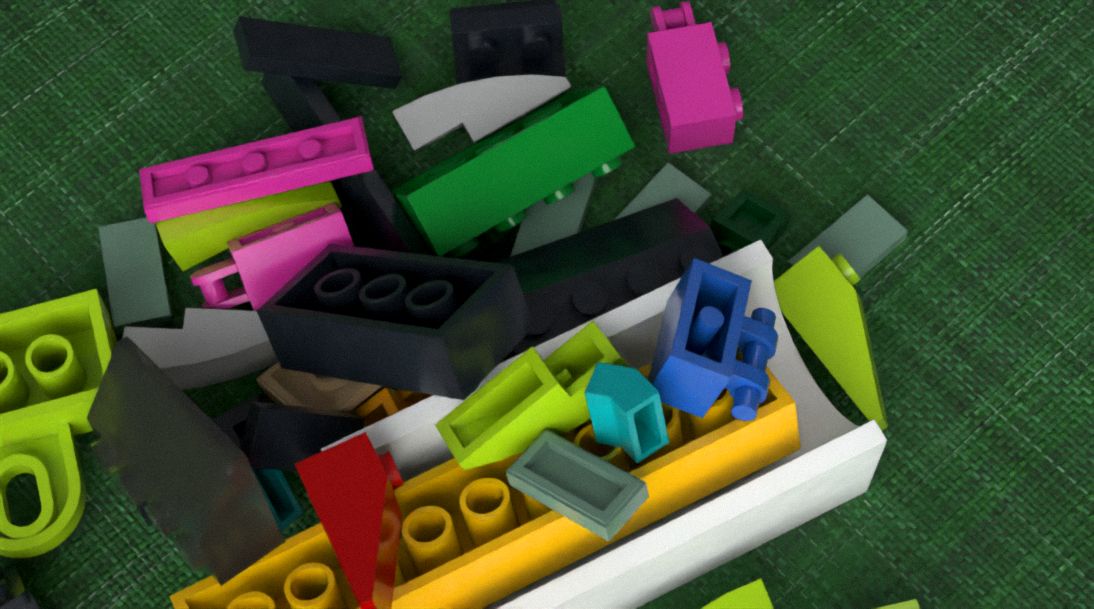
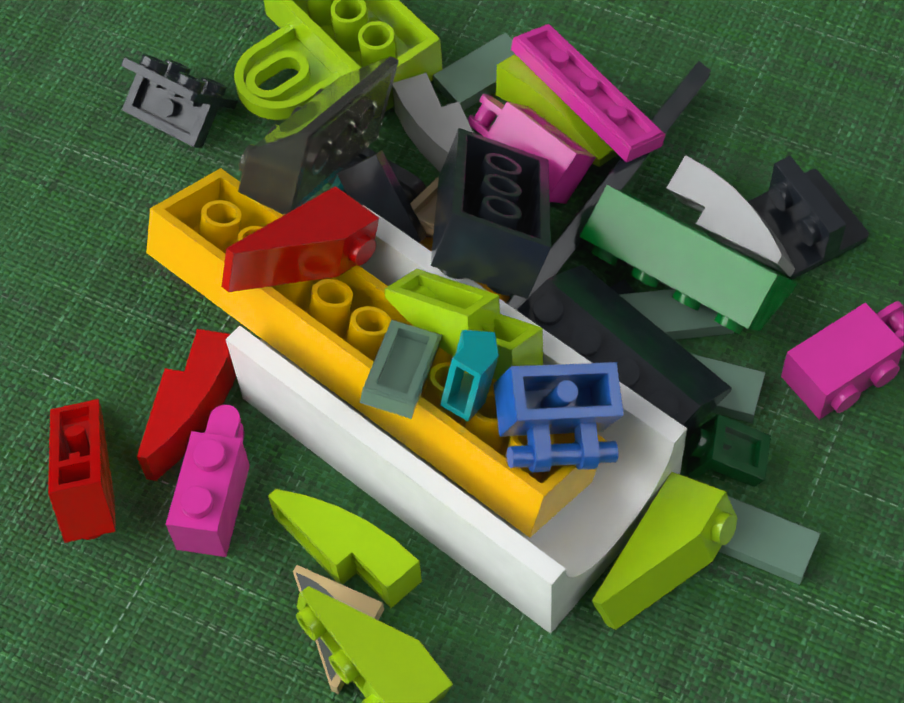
camera: 70 degrees right, 5 degrees down
(316, 53) = (712, 92): black tile -> none

